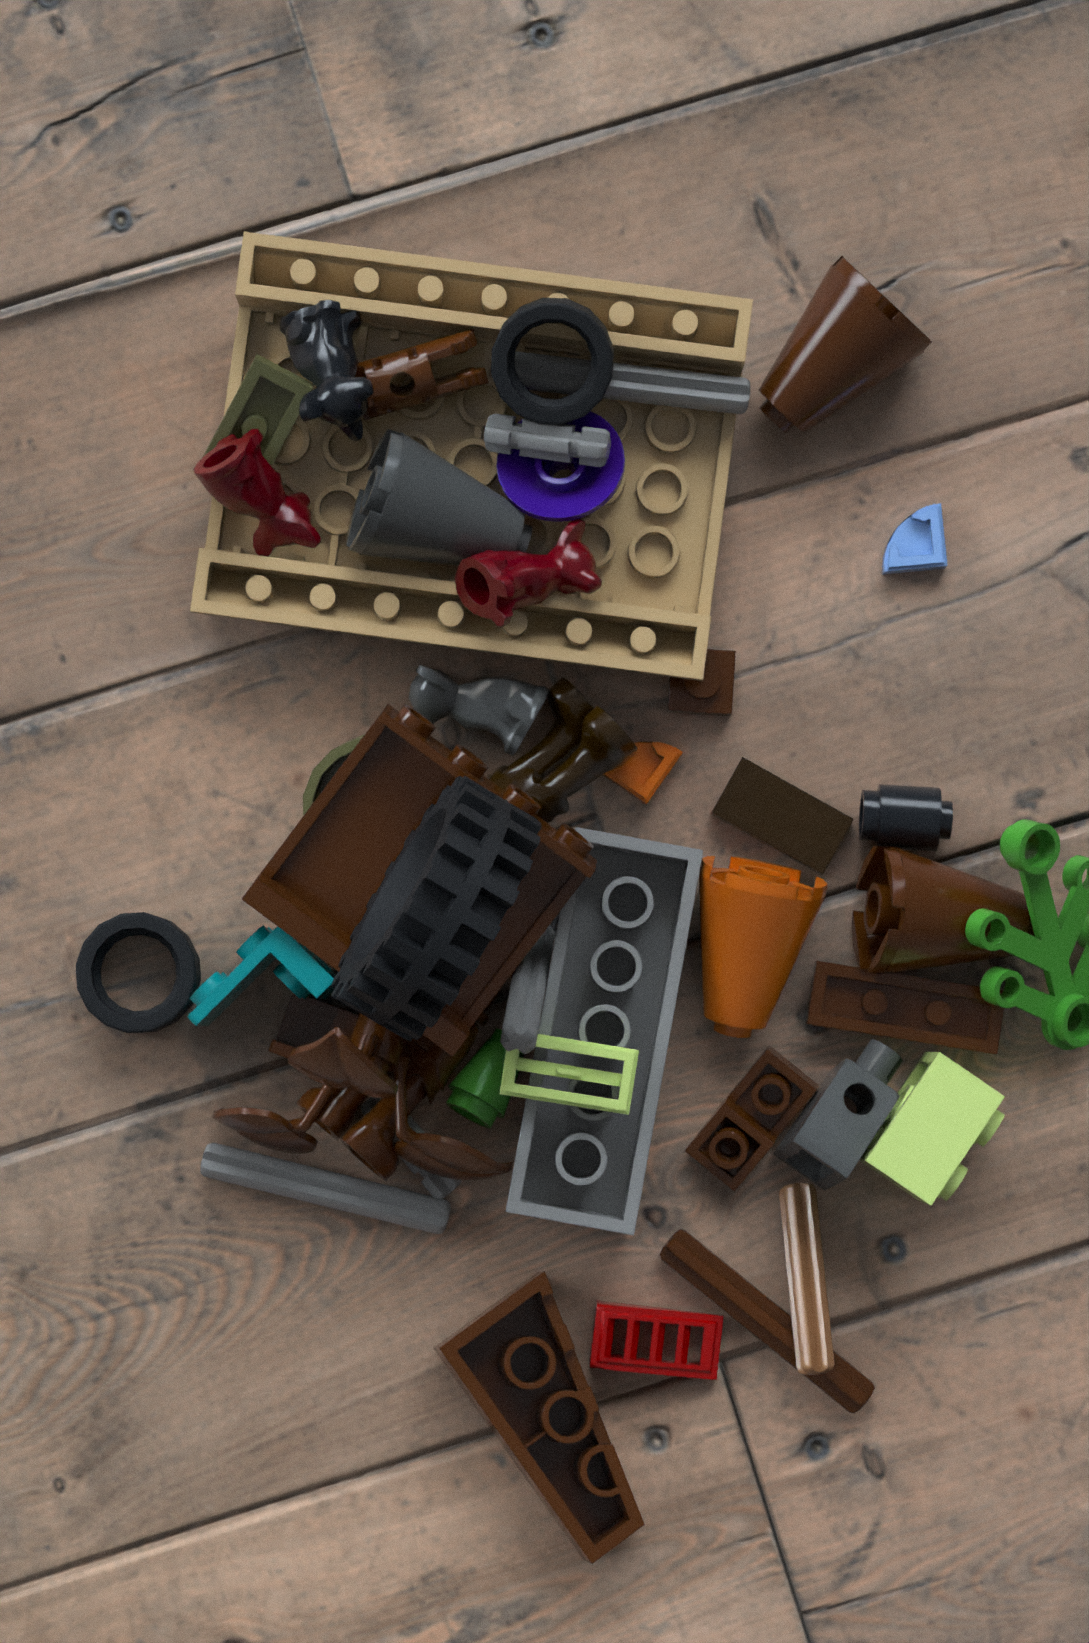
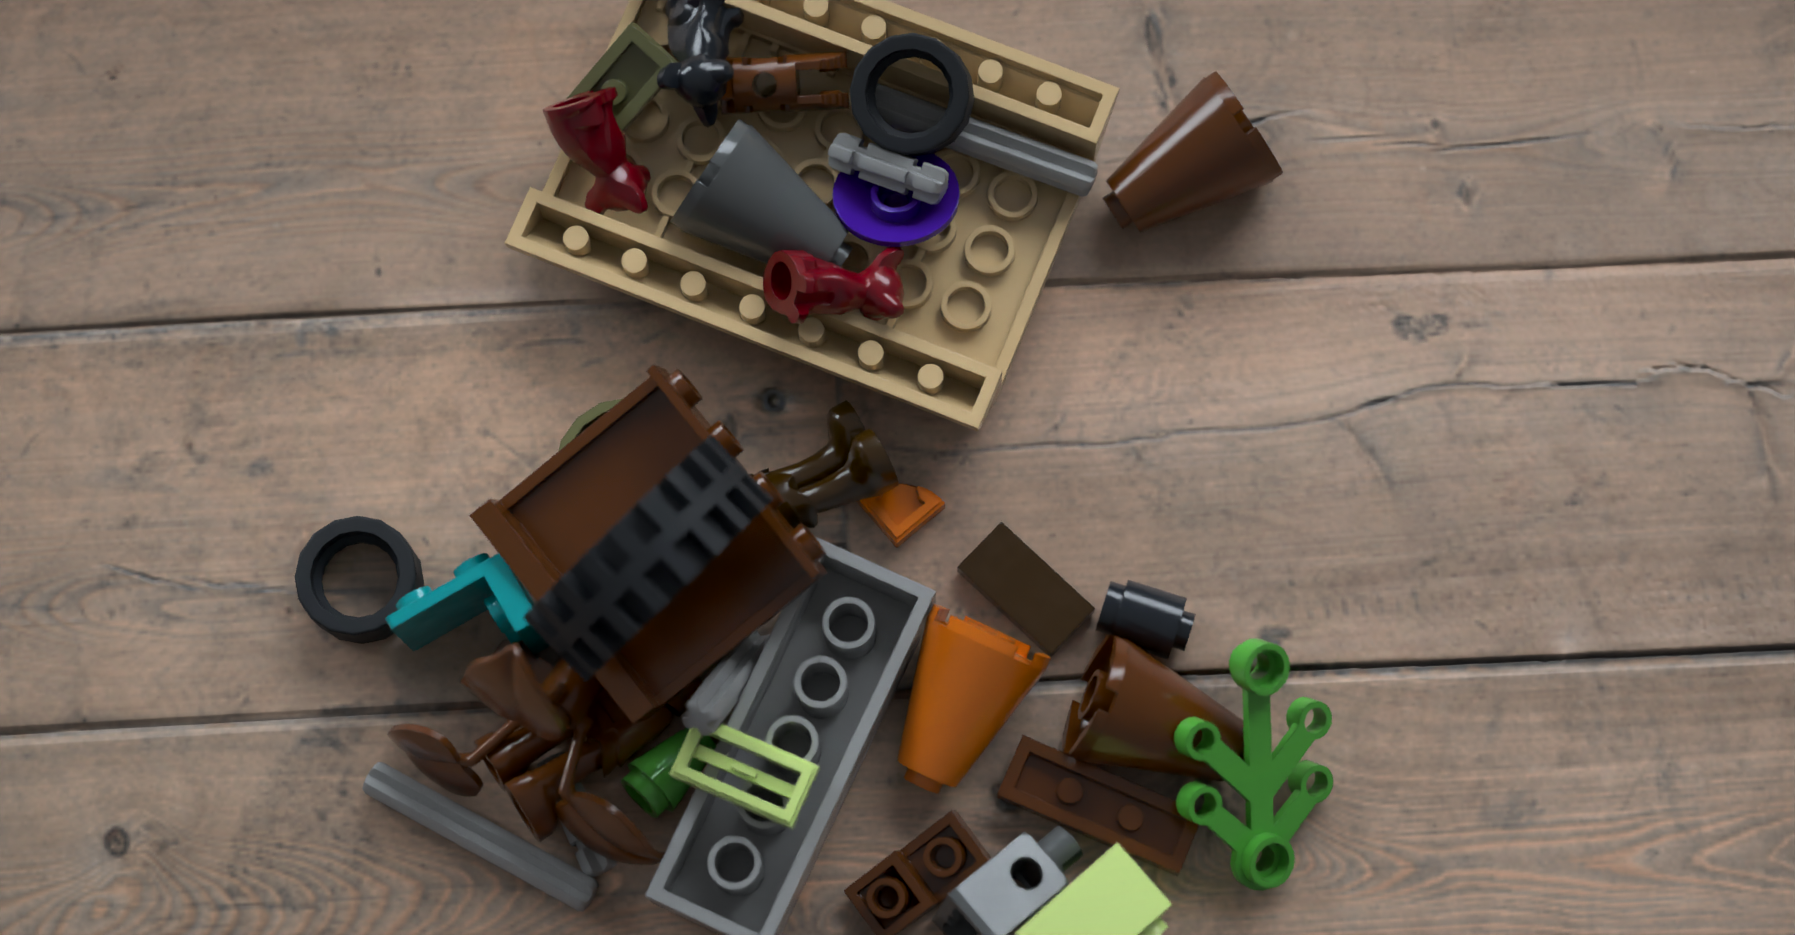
camera: 20 degrees right, 10 degrees down
(488, 704) = (769, 409): dark grey animal -> none
(708, 696) = (985, 451): reddish brown plate -> none
(917, 543) = (1223, 364): light blue tile -> none

